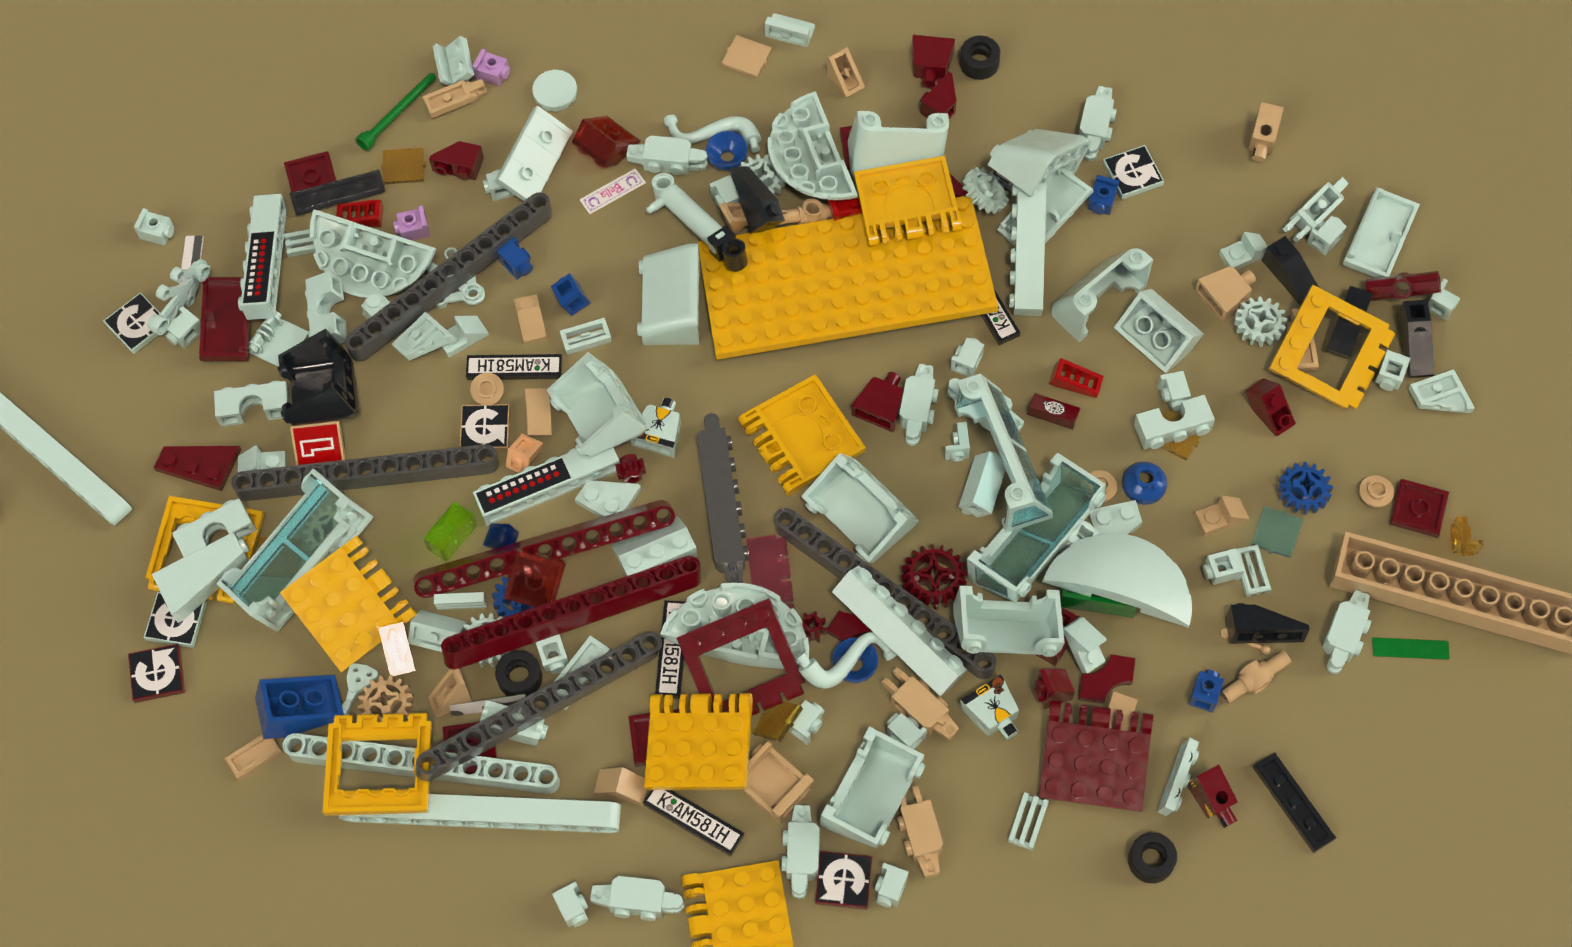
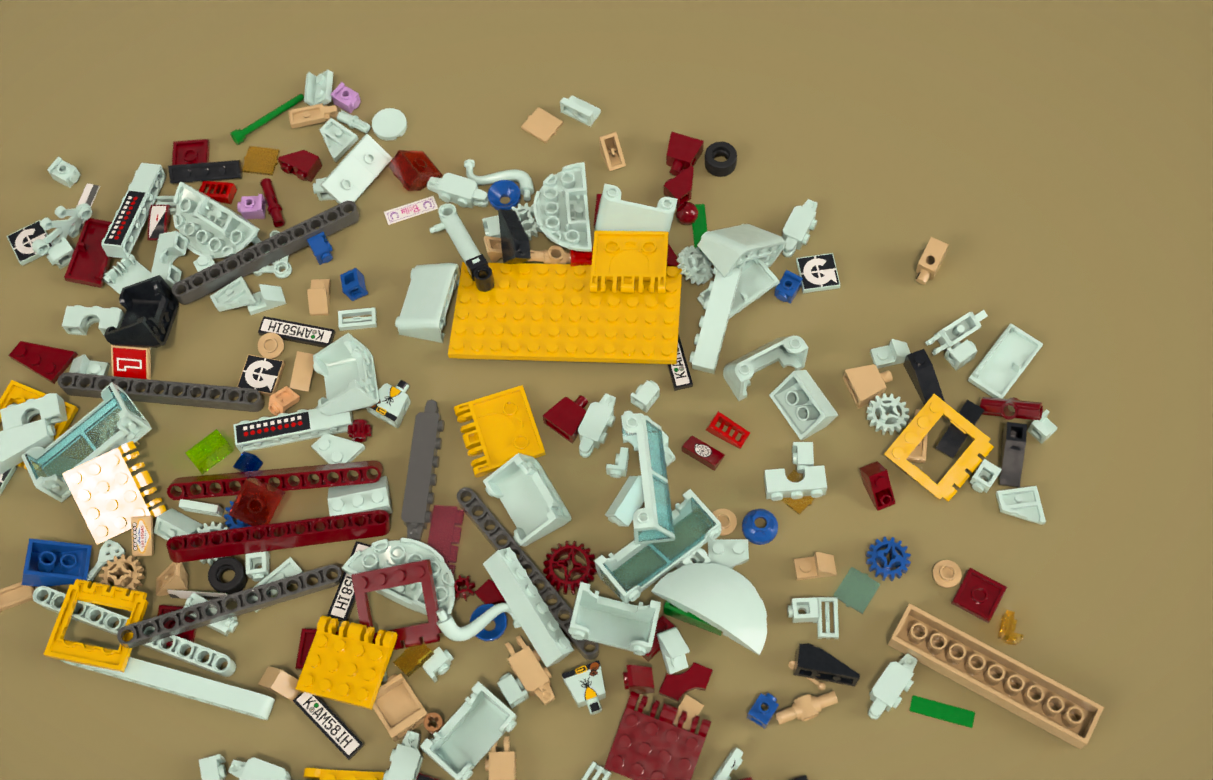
camera: 15 degrees right, 0 degrees up
(296, 265) = (158, 221): none -> slope
(440, 221) = (274, 208): none -> dark red pin
(494, 119) = (337, 138): none -> light aqua wing
(508, 95) = (353, 121): none -> light aqua axle
(823, 783) = (433, 717): none -> medium nougat bush
(959, 130) = (687, 213): none -> dark red piece
(974, 143) = (700, 225): none -> green sticker

